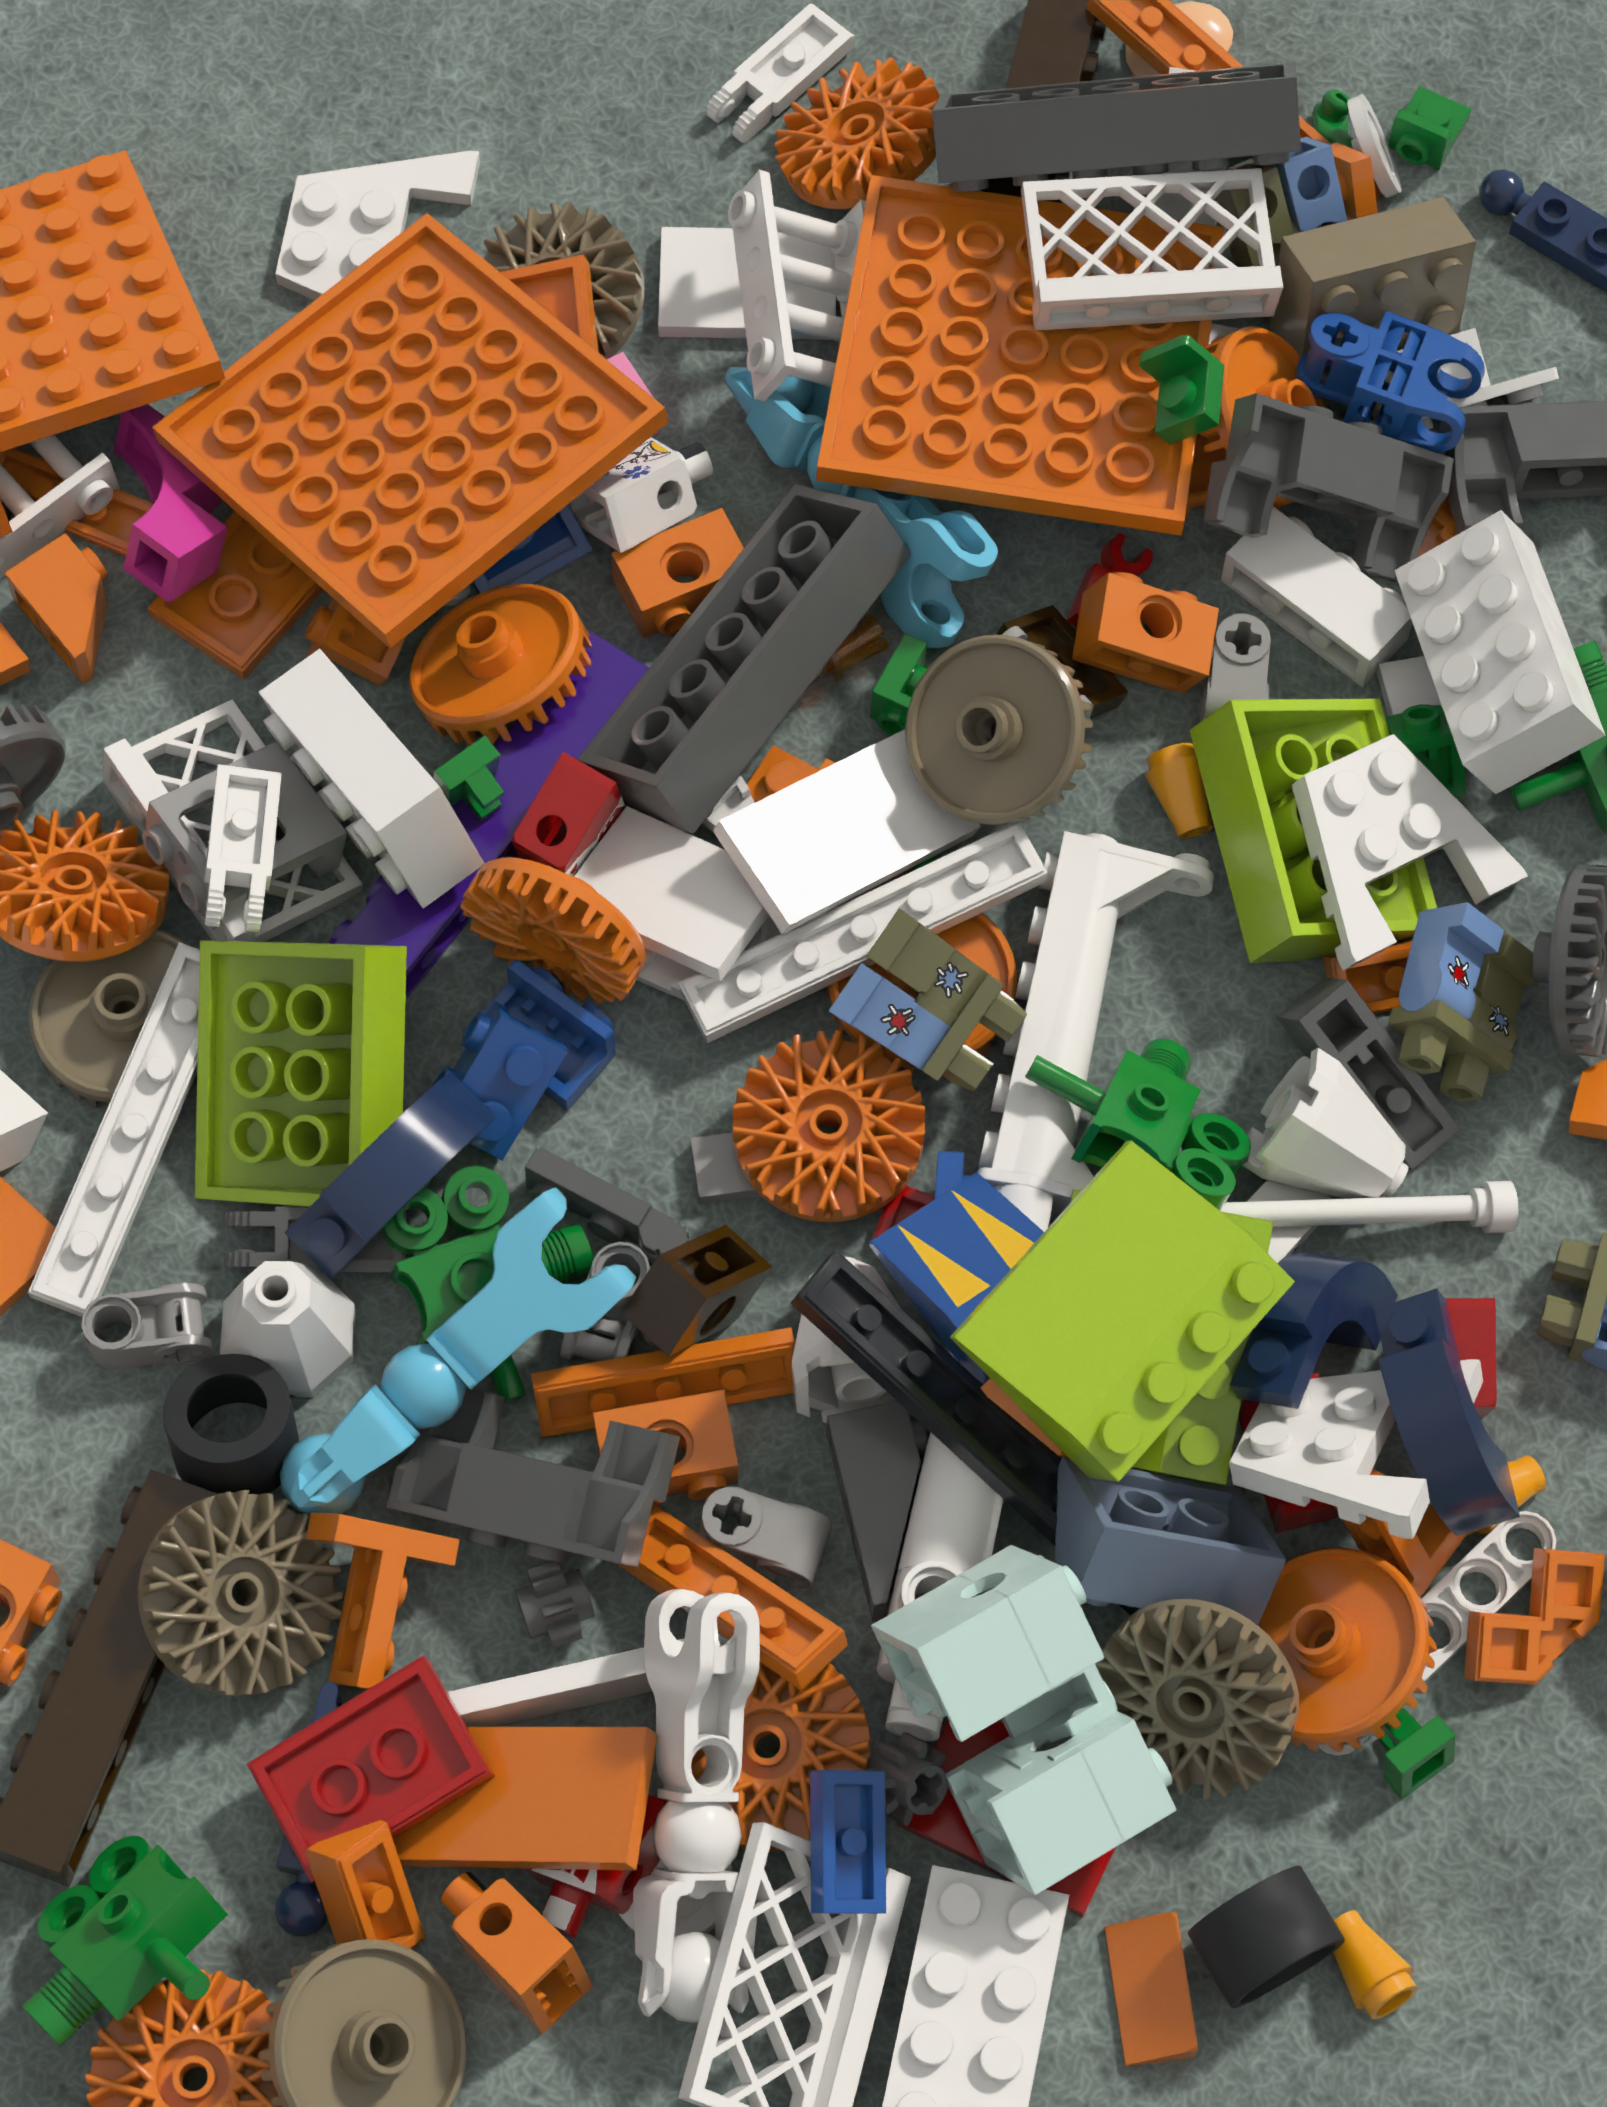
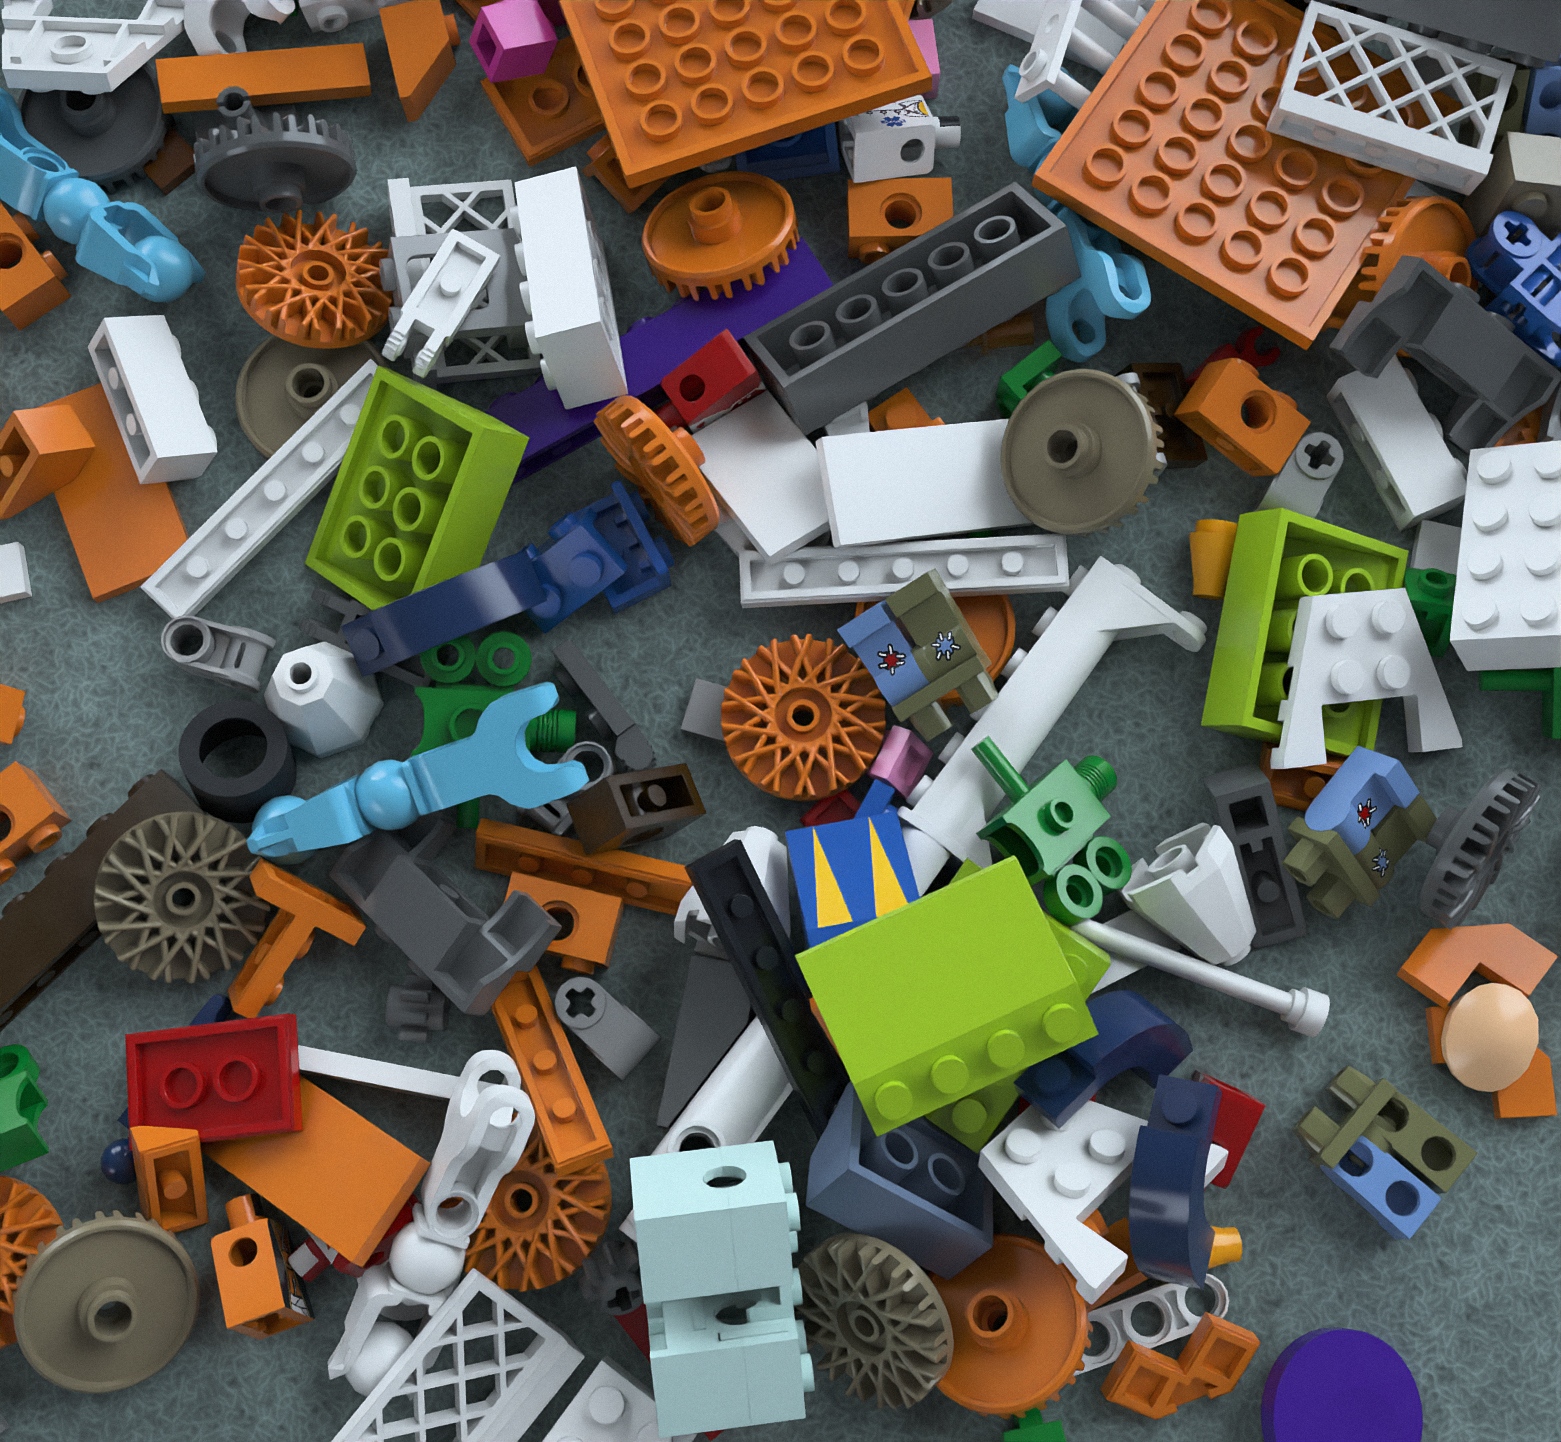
camera: 25 degrees right, 10 degrees up
(471, 778) = (648, 317): green tile -> none
(848, 1842) = (539, 1317): blue plate -> none
(952, 1127) = (900, 761): none -> bright pink tile
(1188, 387) = (1368, 229): green bracket -> none

